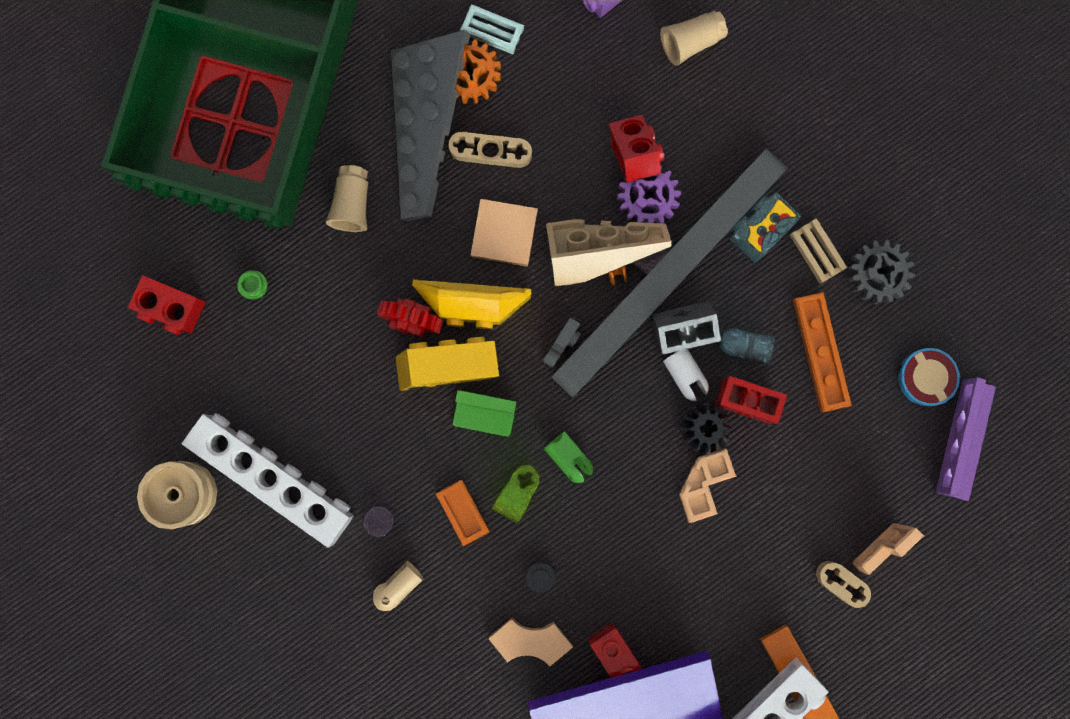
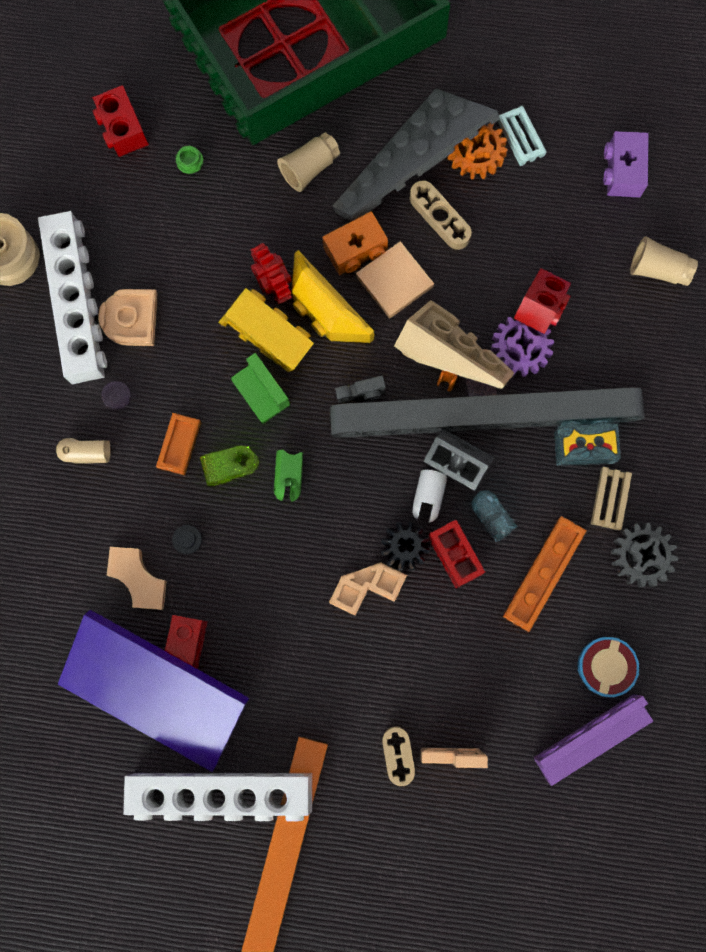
camera: 50 degrees right, 5 degrees down
(328, 451) = (130, 317): none -> light nougat tile
(448, 216) = (363, 232): none -> orange brick

